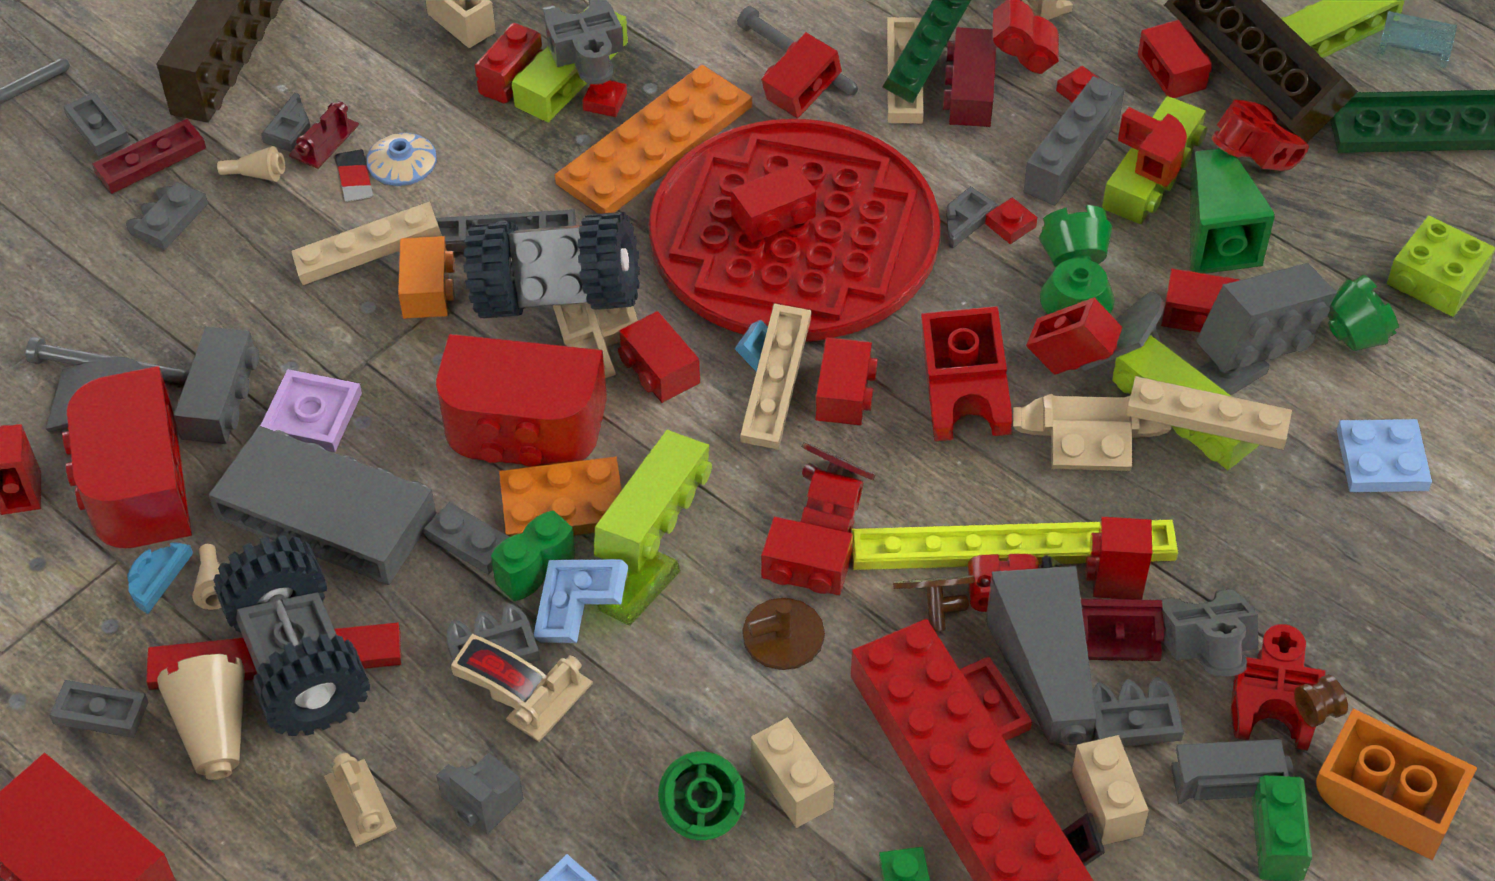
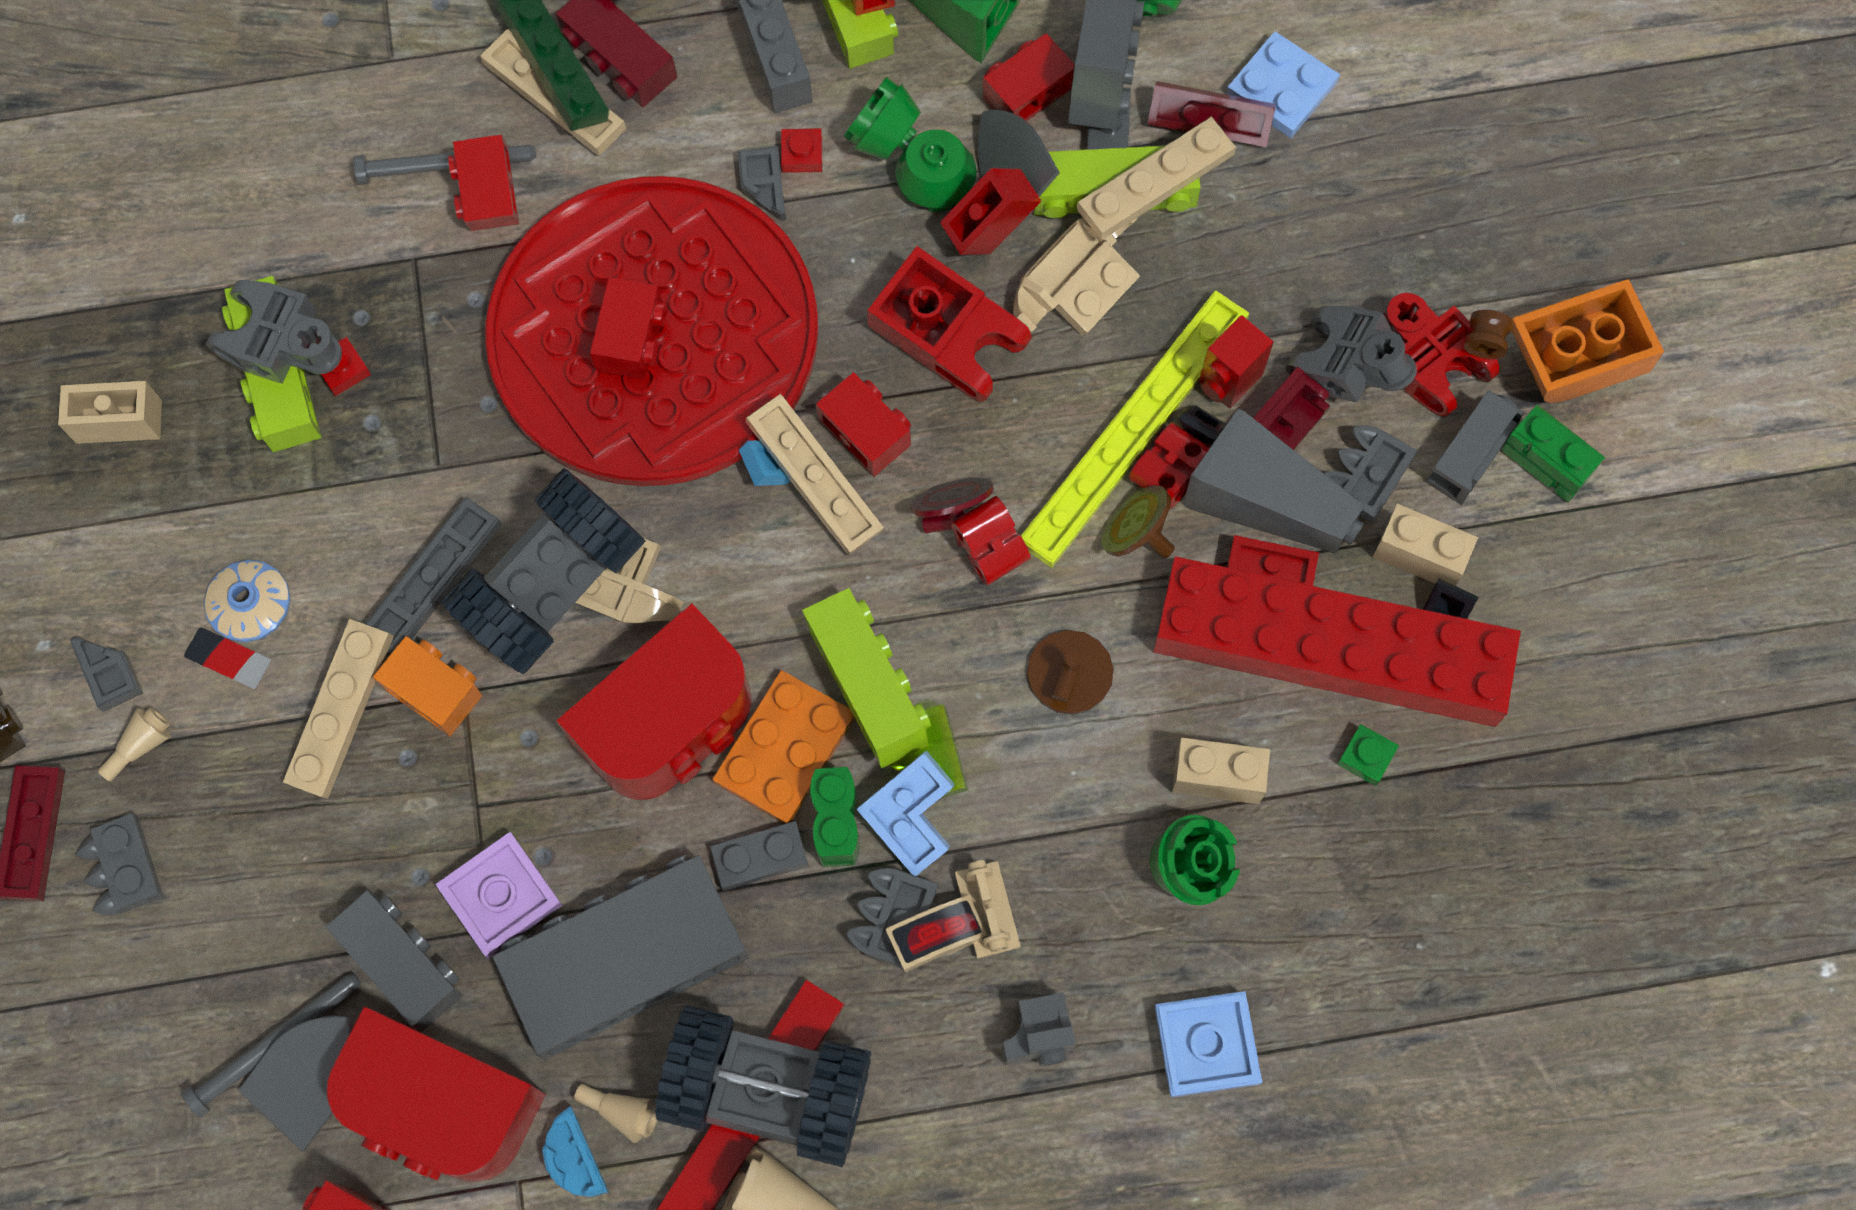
camera: 50 degrees left, 20 degrees up
(324, 137) = (157, 652): dark red hinge -> none
(359, 799) = (963, 1137): tan hinge -> none
(505, 60) = (224, 419): red brick -> none
(653, 141) = (436, 365): orange plate -> none
(659, 357) = (703, 553): red brick -> none
(806, 556) = (1020, 597): red brick -> none
(1308, 425) = (1187, 107): none -> plate

